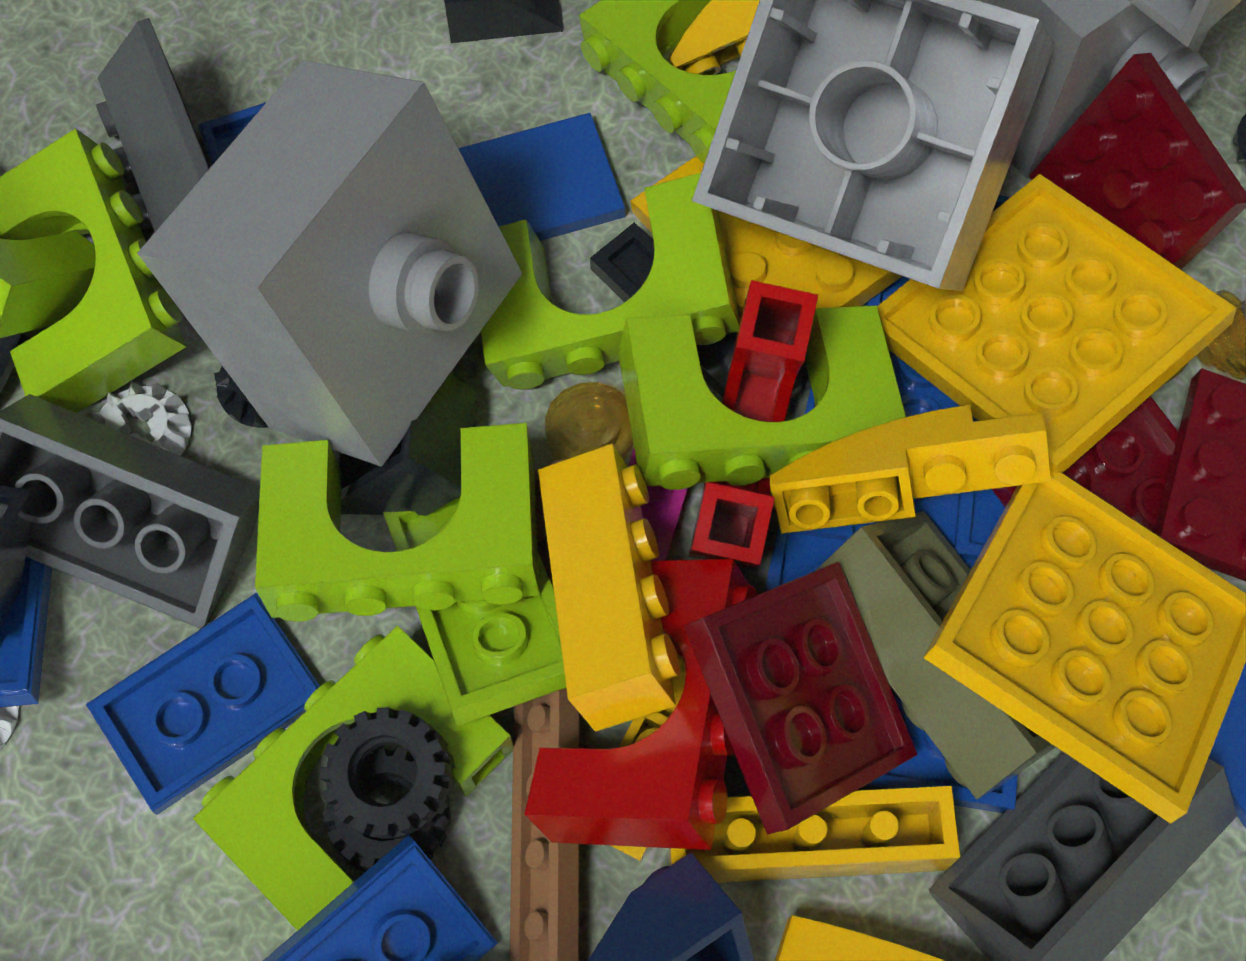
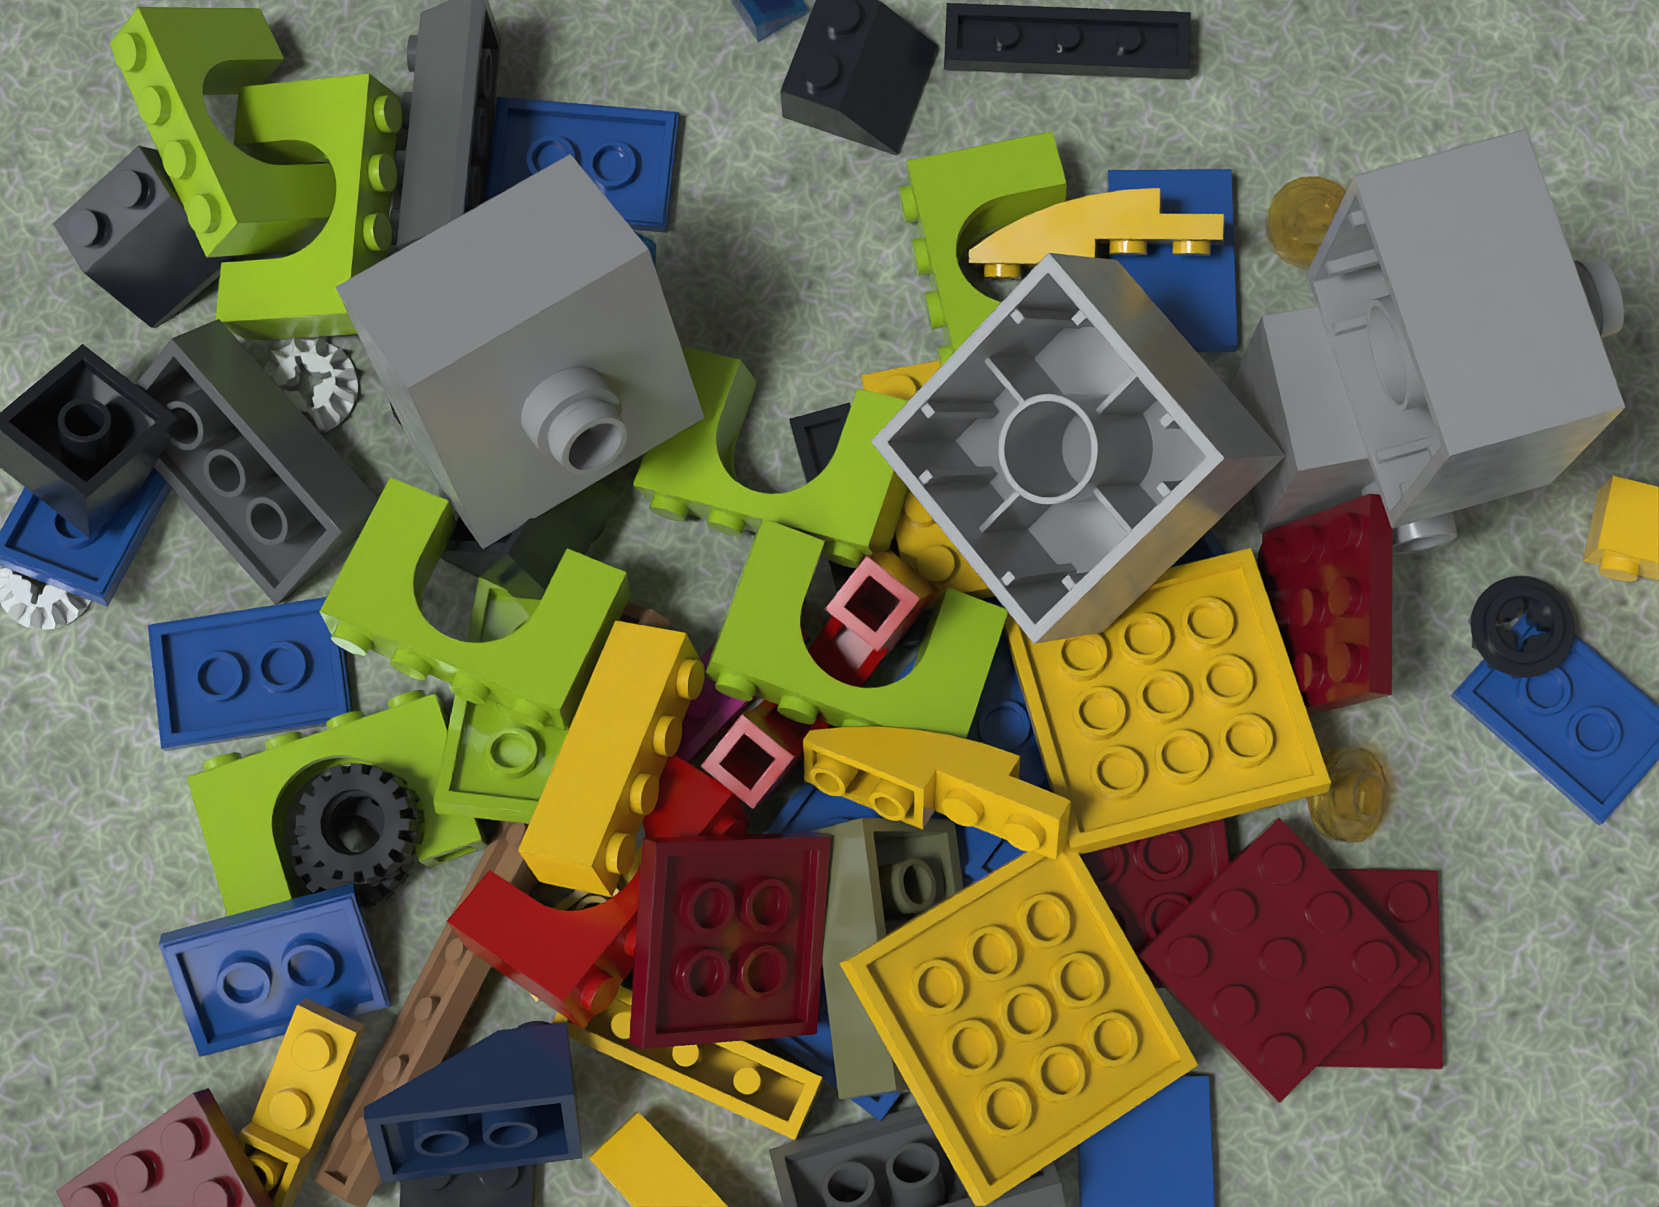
camera: 30 degrees right, 10 degrees up
(547, 176) = (773, 308): blue tile -> none
(588, 419) = (699, 584): clear yellow plate -> none

